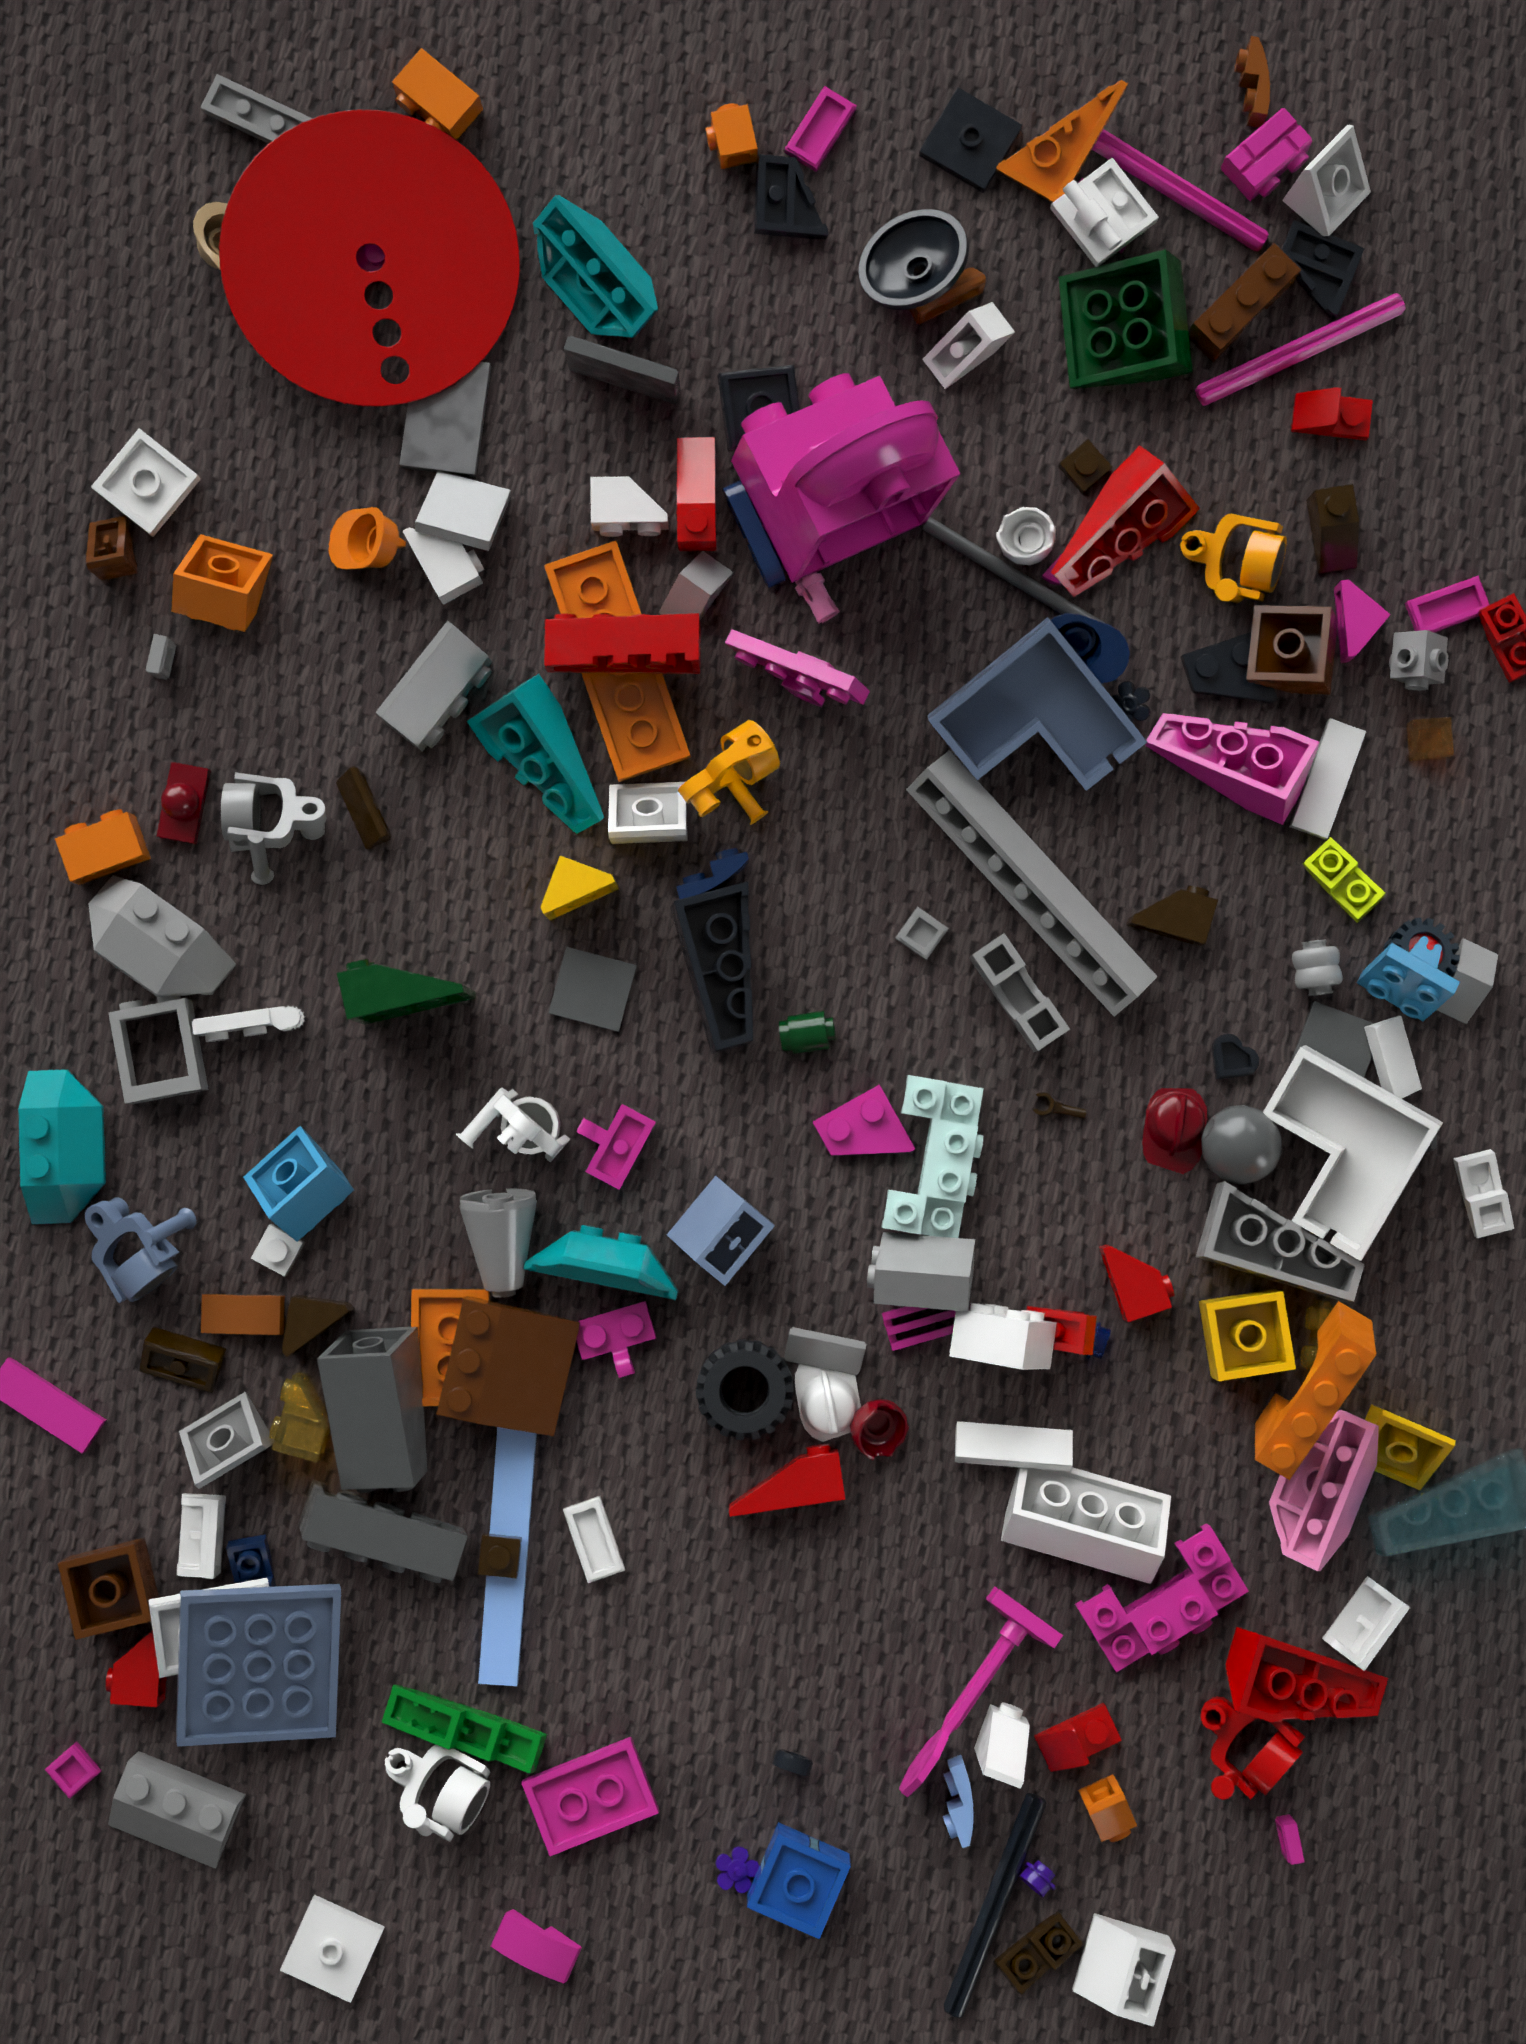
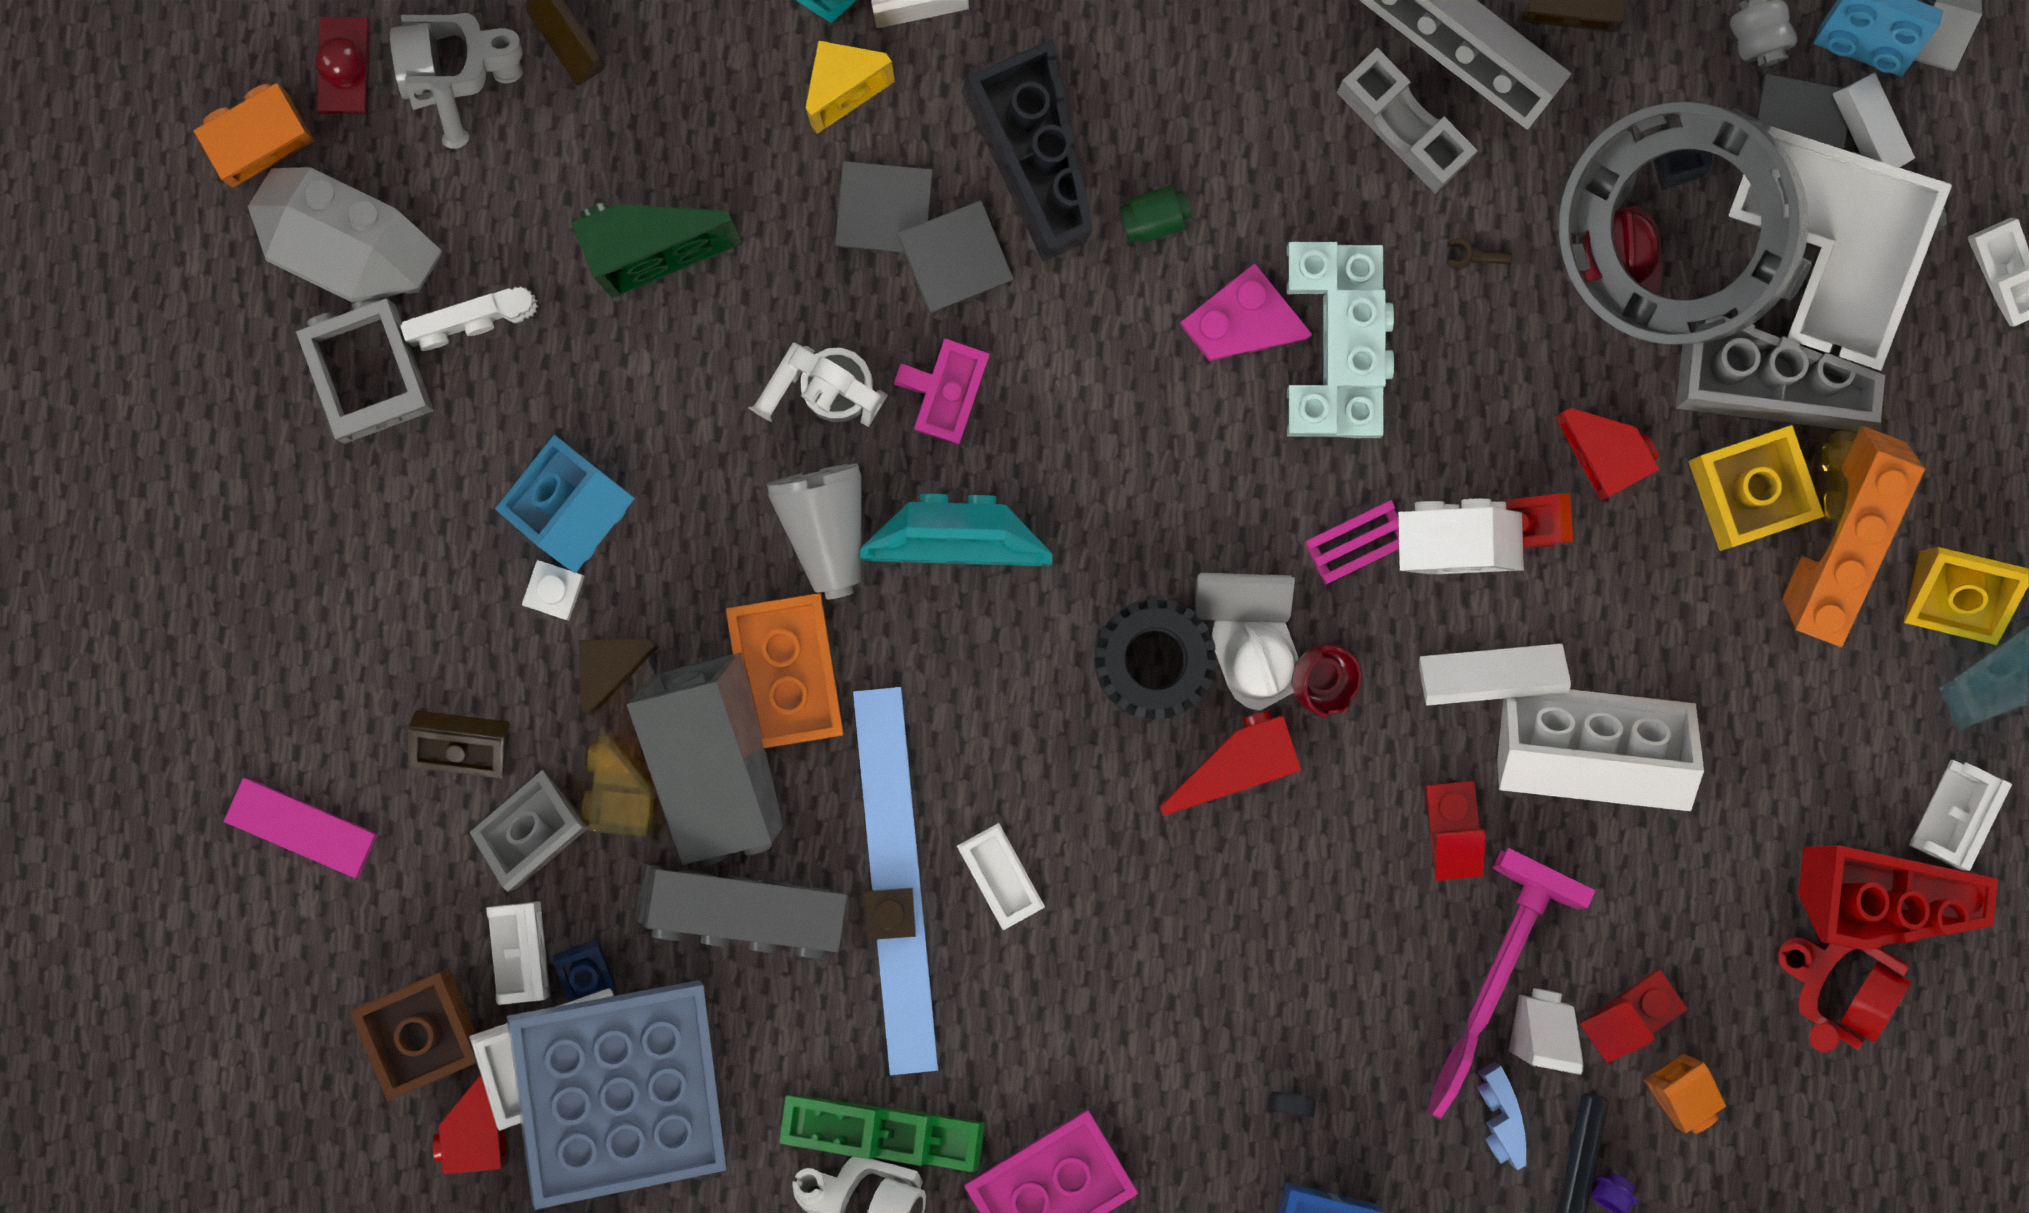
camera: 15 degrees left, 0 degrees up
(59, 1146) = (264, 509): teal wedge -> none
(147, 1267) = (394, 636): sand blue piece -> none
(242, 1314) = (523, 674): dark orange slope -> none
(508, 1367) = (861, 679): reddish brown slope -> none
(615, 1333) = (983, 621): dark pink plate -> none
(642, 1038) = (955, 256): none -> dark grey piece
(720, 1230) = (1092, 471): sand blue slope -> none
(724, 869) = (1019, 34): dark blue slope -> none
(921, 933) = (1274, 72): light grey tile -> none
(922, 1271) = (1348, 476): light grey brick -> none
(961, 1564) = (1455, 830): none -> red slope
(1100, 1341) = (1579, 527): clear blue plate -> none
(1169, 1610) = (1719, 840): dark pink bracket -> none
(1181, 1178) = (1605, 180): none -> dark grey piece
(1241, 1144) = (1705, 253): dark grey piece -> none
(1289, 1839) = (1913, 1093): dark pink tile -> none
(1326, 1491) = (1882, 670): bright pink wedge -> none

